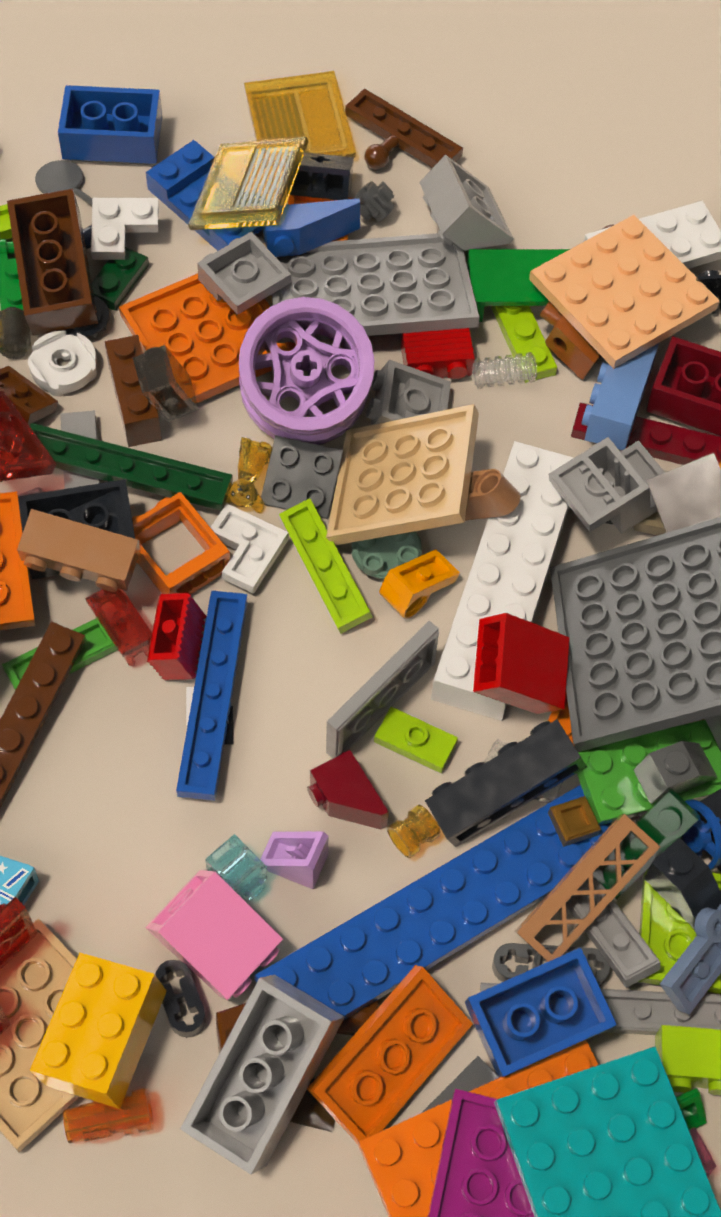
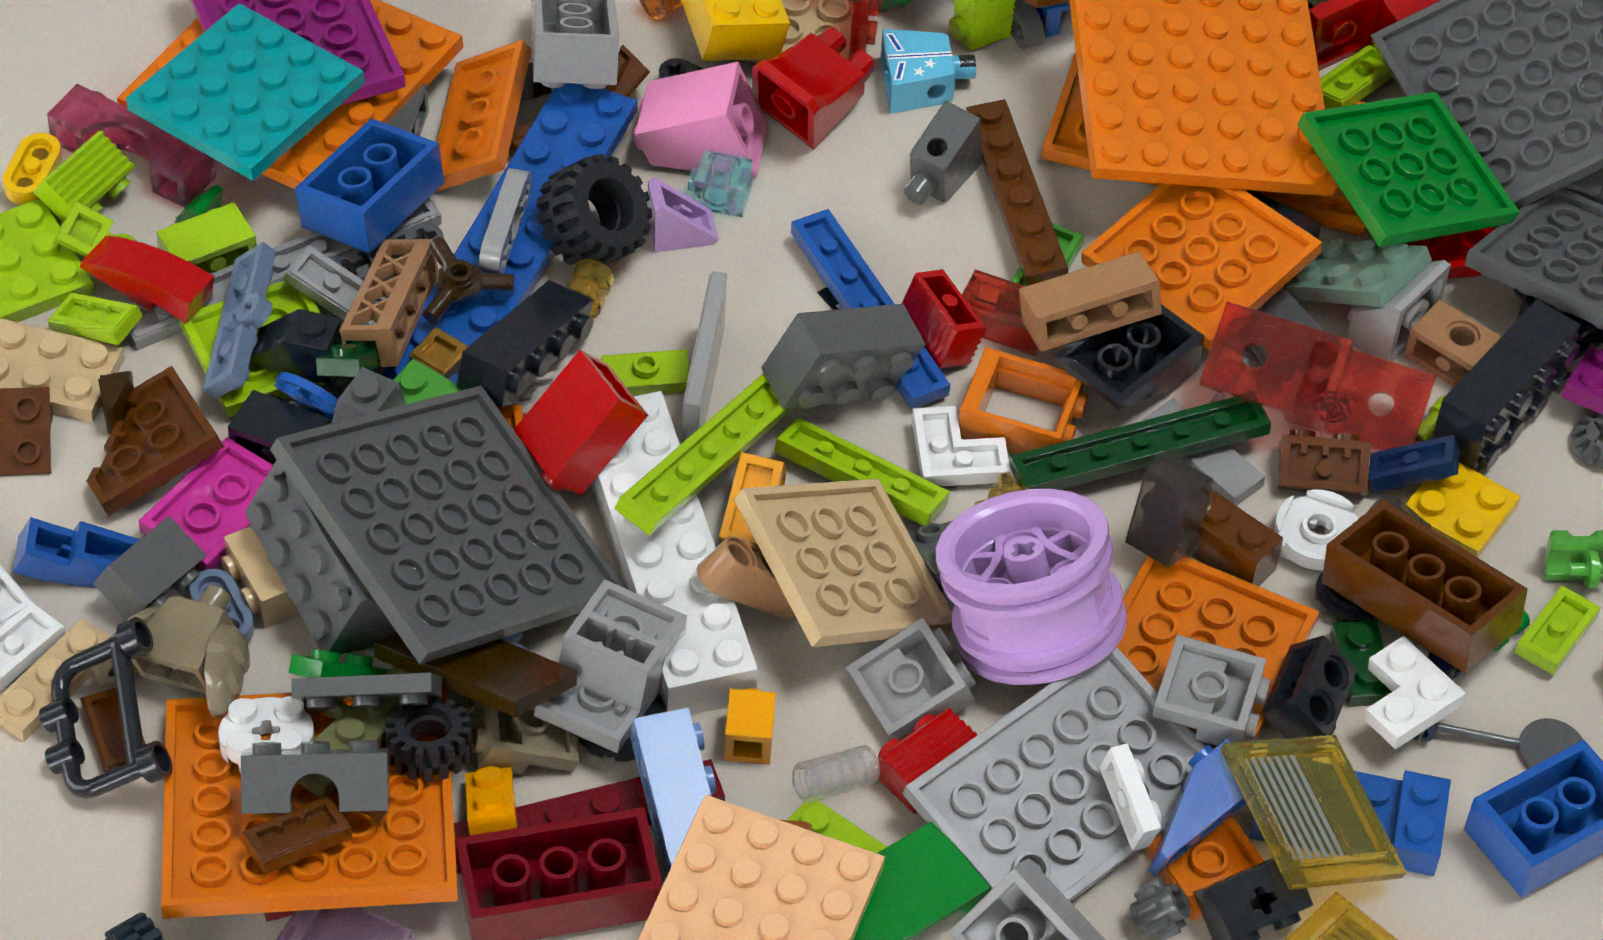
camera: 145 degrees right, 10 degrees down
(51, 778) = (944, 155): none -> dark grey torso
(97, 908) = (811, 85): none -> red hips
(173, 260) = (1309, 689): none -> black brick
(286, 619) = (842, 356): none -> dark grey brick
(347, 792) = (667, 288): dark red slope -> none
(348, 241) = (1126, 786): none -> white plate
(374, 872) = (617, 200): none -> black tyre
(410, 612) = (701, 457): none -> lime plate
(453, 898) = (505, 221): none -> light grey beam
(523, 868) = (460, 281): none -> dark brown piece
(536, 427) = (749, 726): none -> light orange brick

